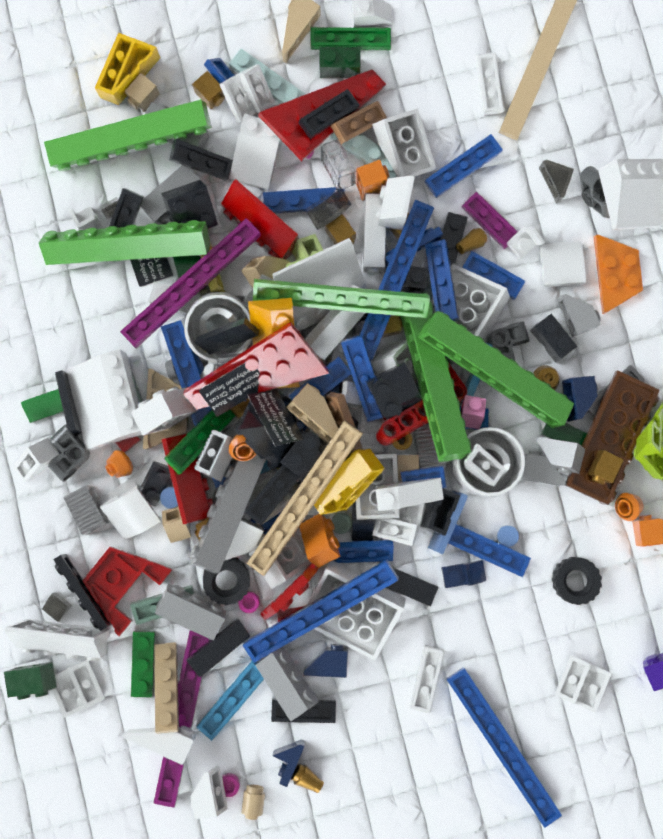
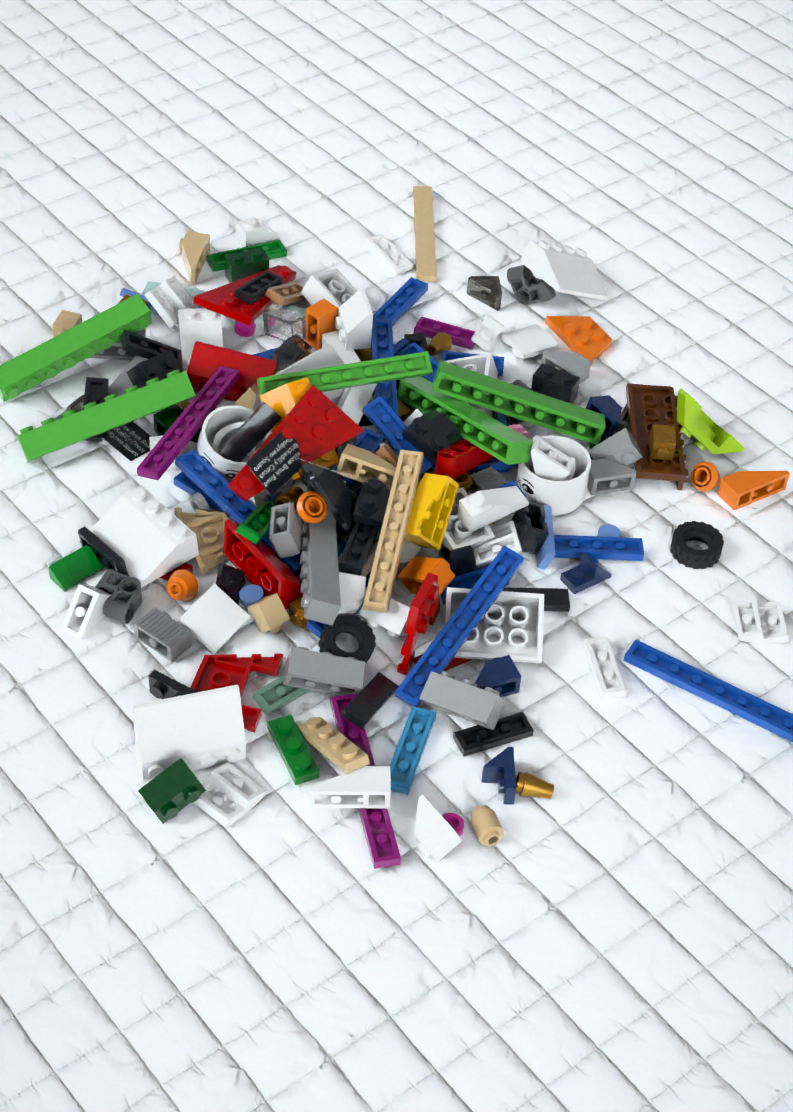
camera: 25 degrees left, 40 degrees down
(123, 65) = (42, 309): yellow wedge -> none
(162, 411) = (211, 508): white brick -> none
(249, 602) = (380, 662): dark pink tile -> none

